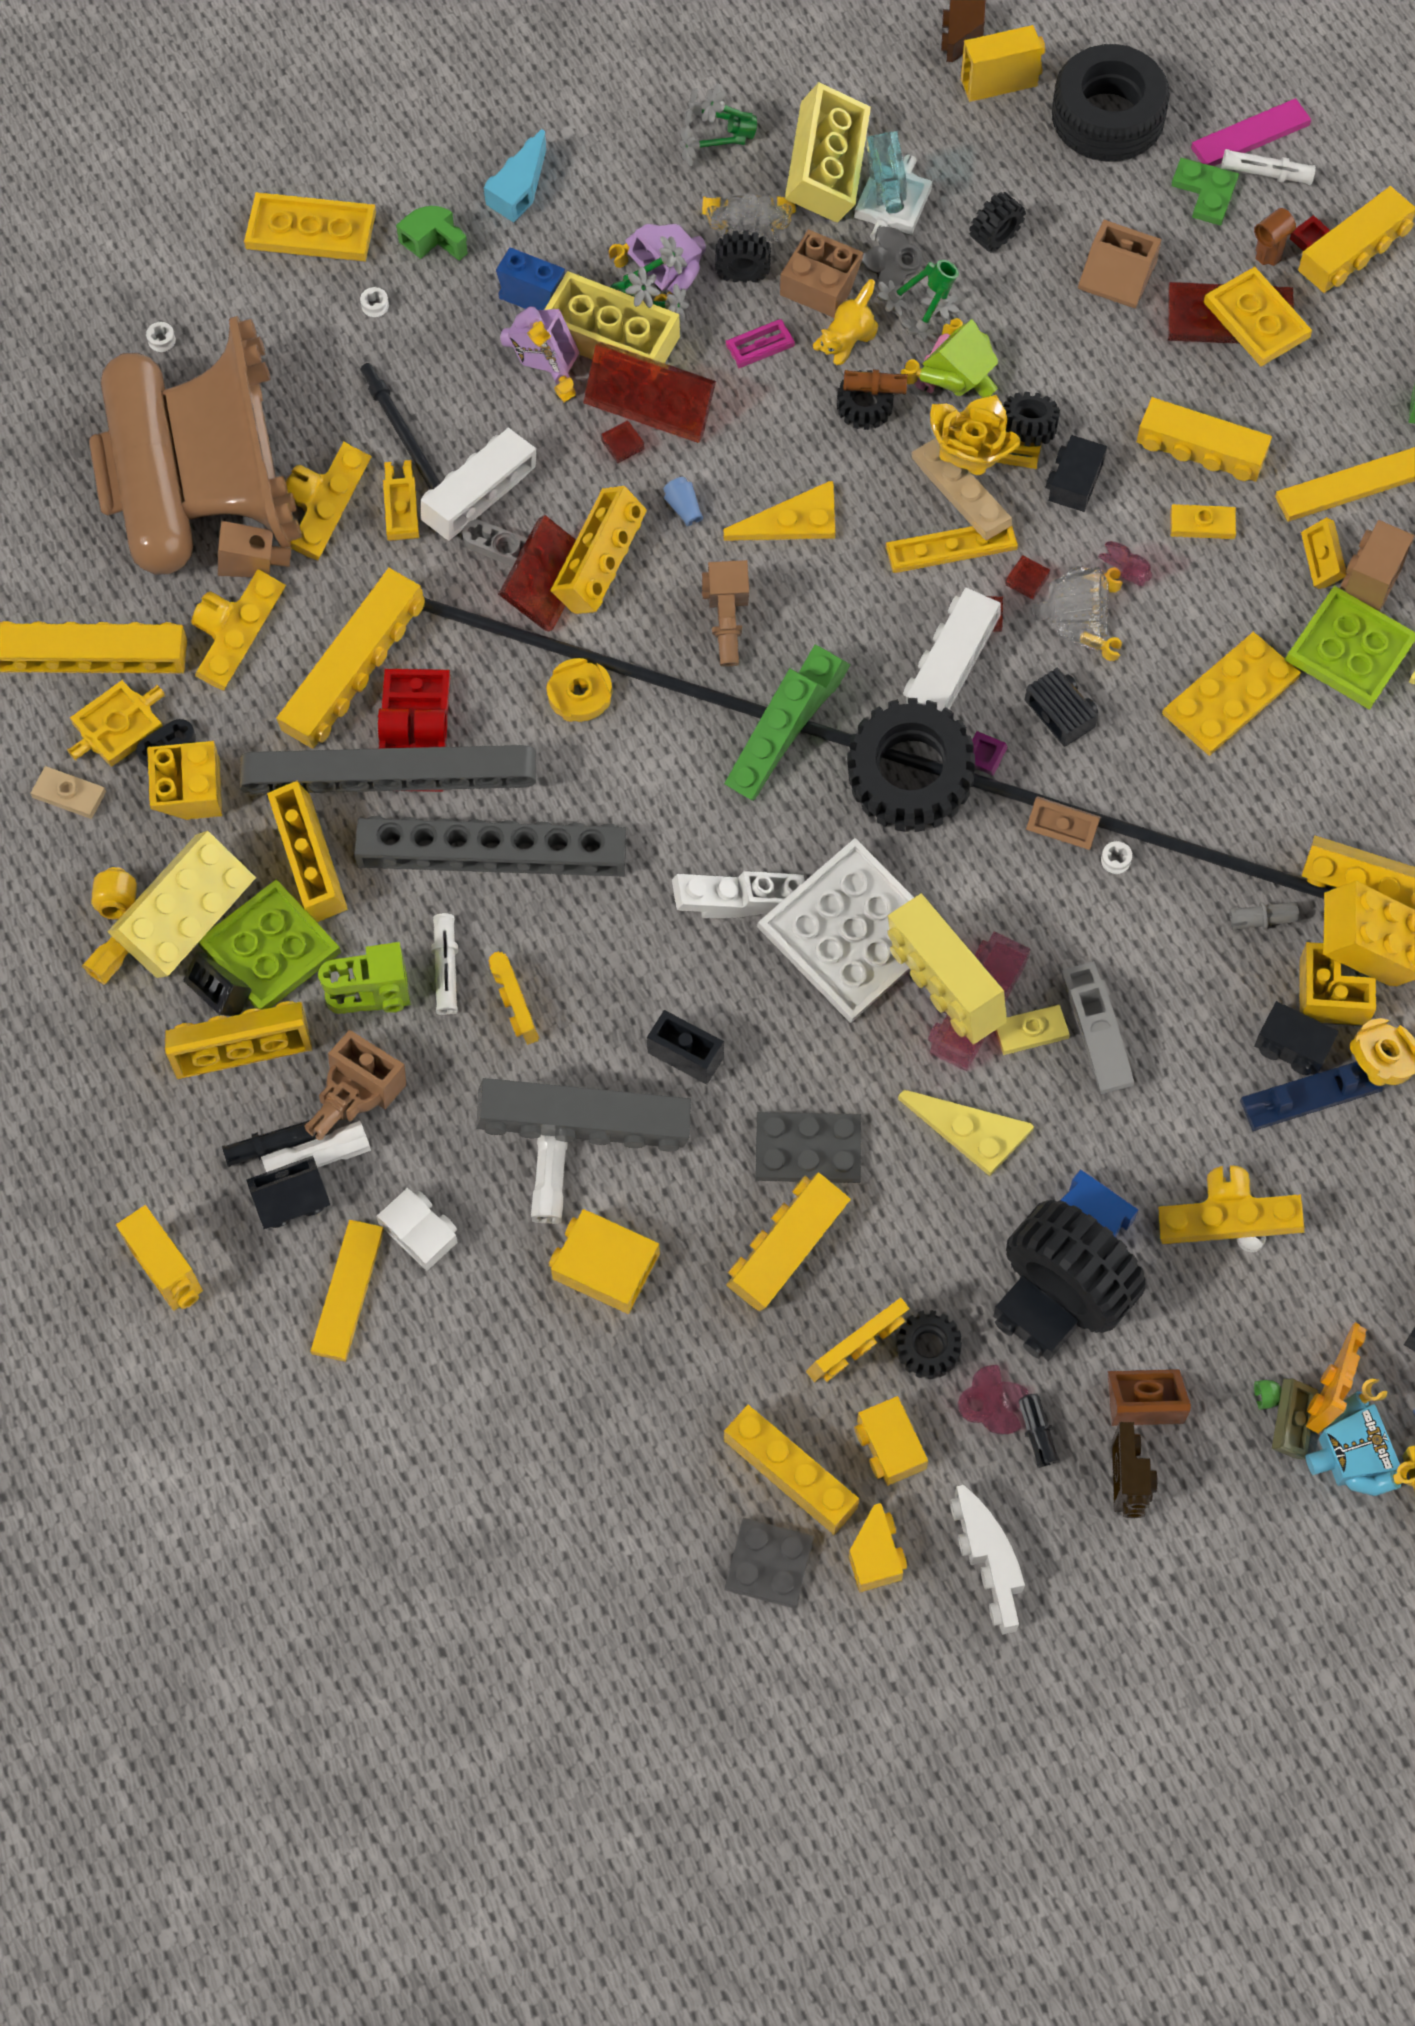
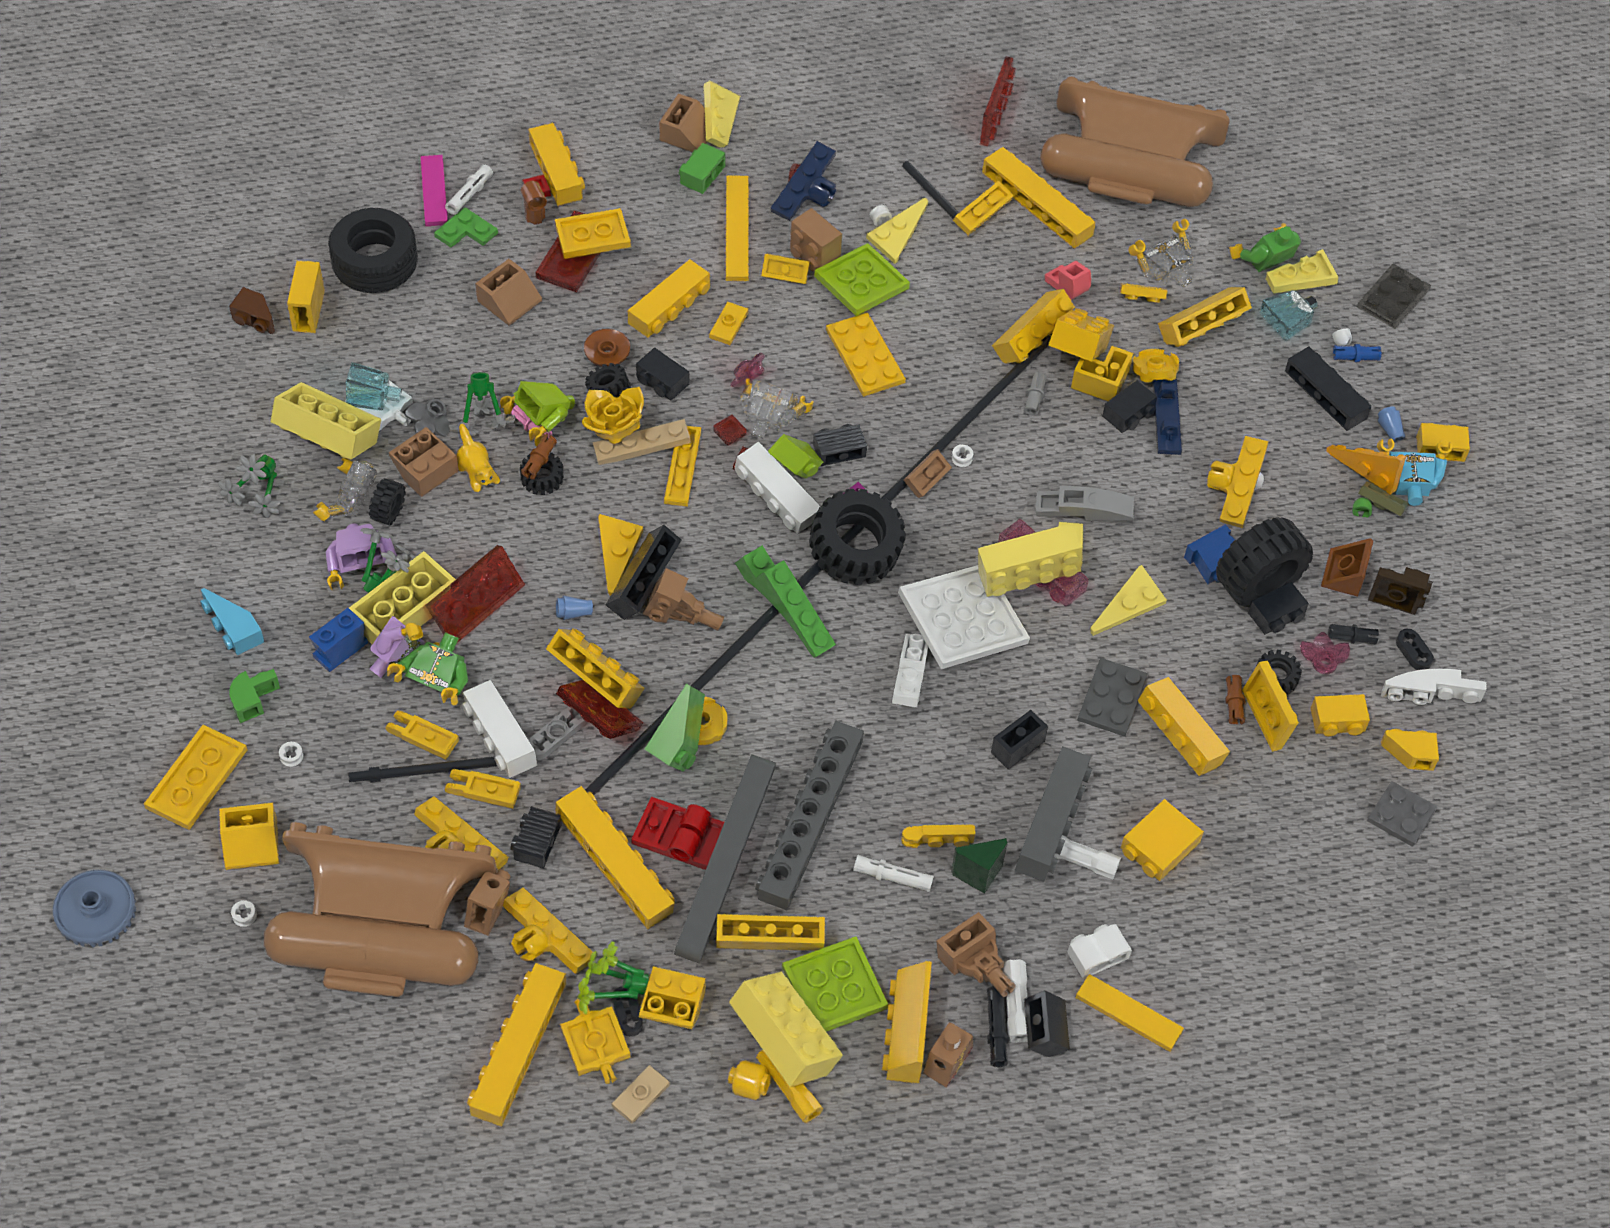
camera: 75 degrees left, 10 degrees down
(119, 202) = (94, 907): none -> sand blue wheel
(160, 1258) = (1076, 1122): yellow window -> none
(198, 688) = (634, 980): none -> plant
(211, 1094) = (951, 1050): none -> medium nougat torso
(234, 991) = (869, 1033): black slope -> none
(252, 294) = (249, 836): none -> yellow slope
(350, 572) = (536, 837): none -> black brick
(377, 977) = (898, 913): lime brick -> none
(447, 418) = (423, 734): none -> yellow hinge
(478, 1052) = (979, 863): none -> dark green slope
(532, 390) = (435, 668): none -> bright green torso
(533, 660) = (679, 732): none -> bright green slope
(622, 441) = (503, 629): clear red plate -> none
(762, 552) = (643, 572): none -> black brick
(785, 343) = (459, 537): dark pink tile -> none
(791, 1469) = (1345, 776): yellow brick -> none
(864, 1301) = (1235, 699): none -> dark orange pin
(997, 221) = (438, 345): black tyre -> none
(1009, 658) = (796, 456): none -> lime slope
(1043, 1515) = (1414, 649): none -> black beam
(1093, 389) = (605, 340): none -> dark orange dish

